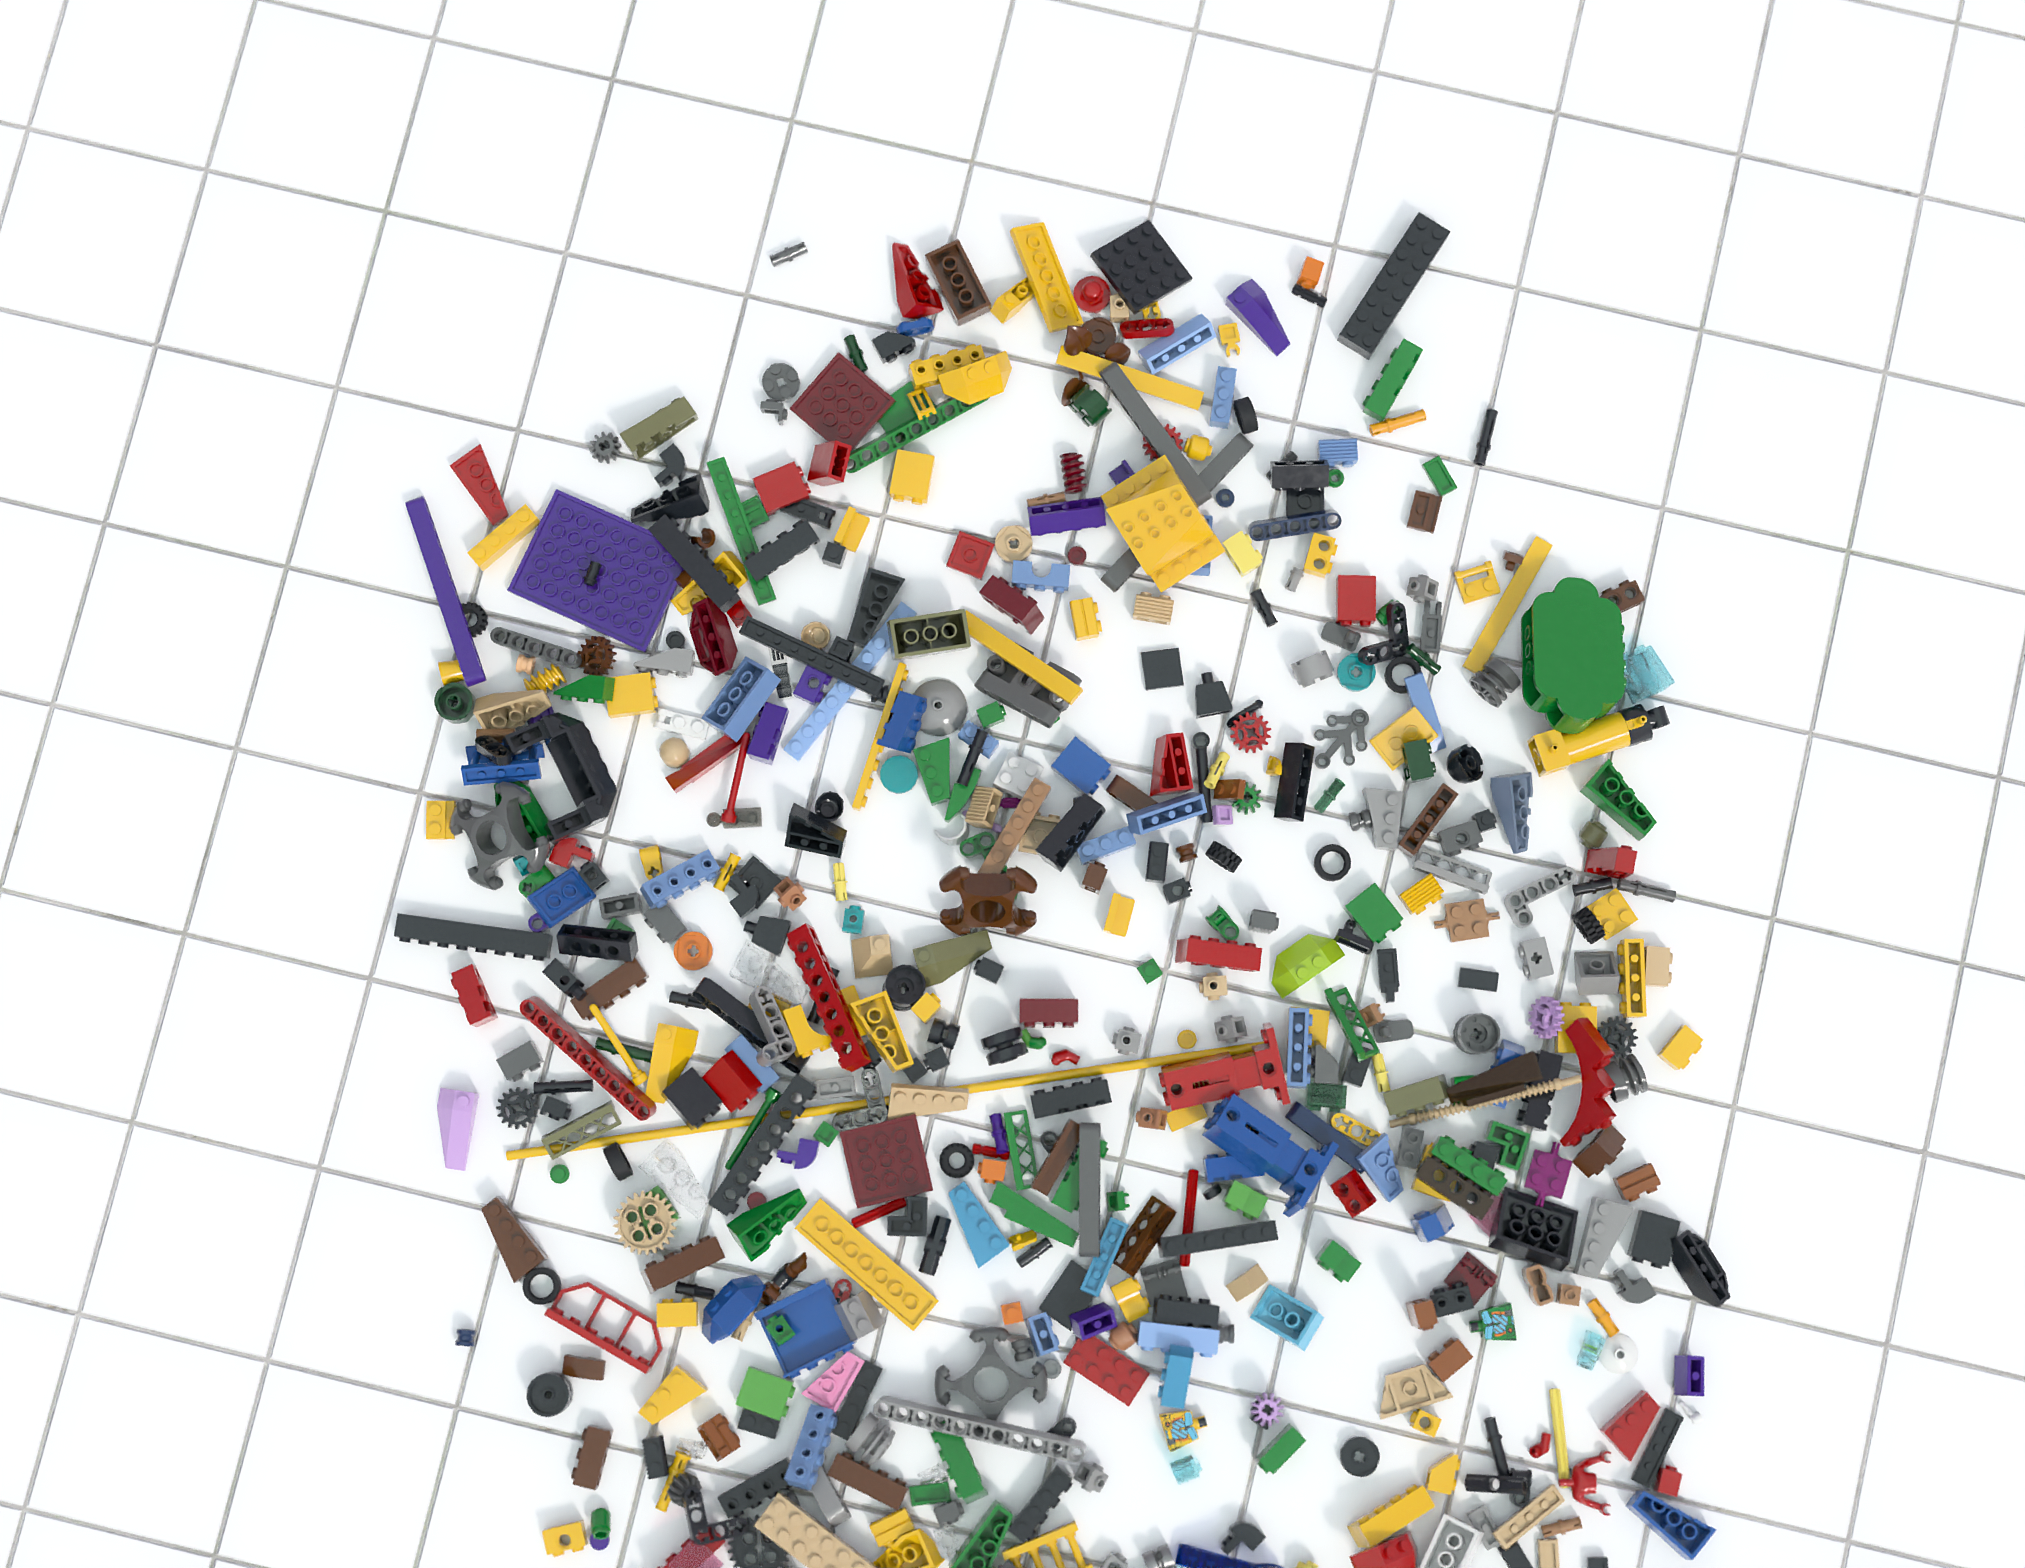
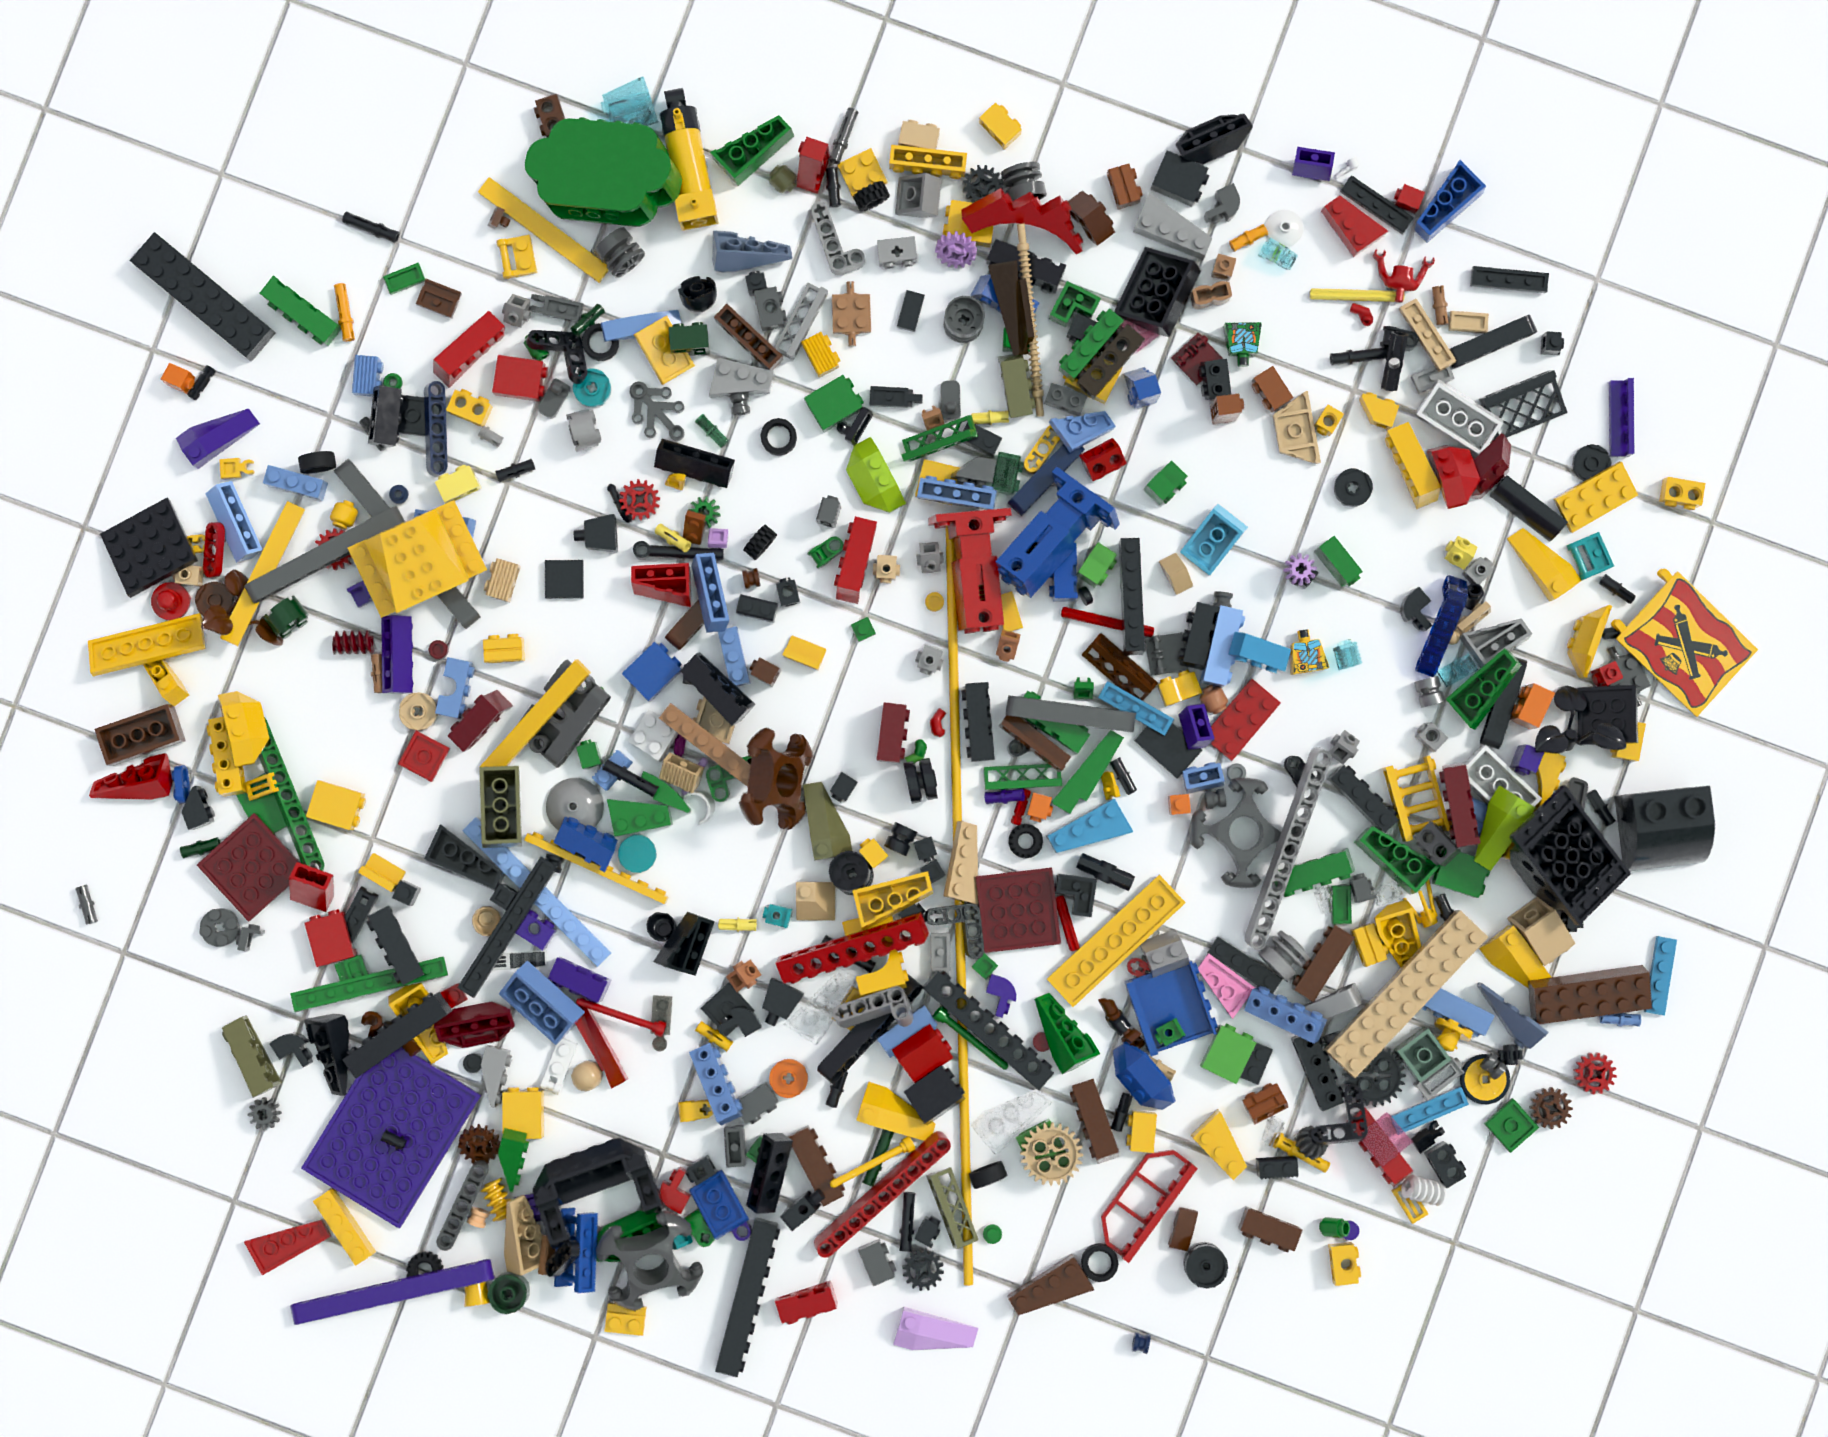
camera: 85 degrees left, 5 degrees up
(1378, 546) = (468, 348): none -> red wedge
(1548, 1174) = (1106, 270): magenta plate -> none

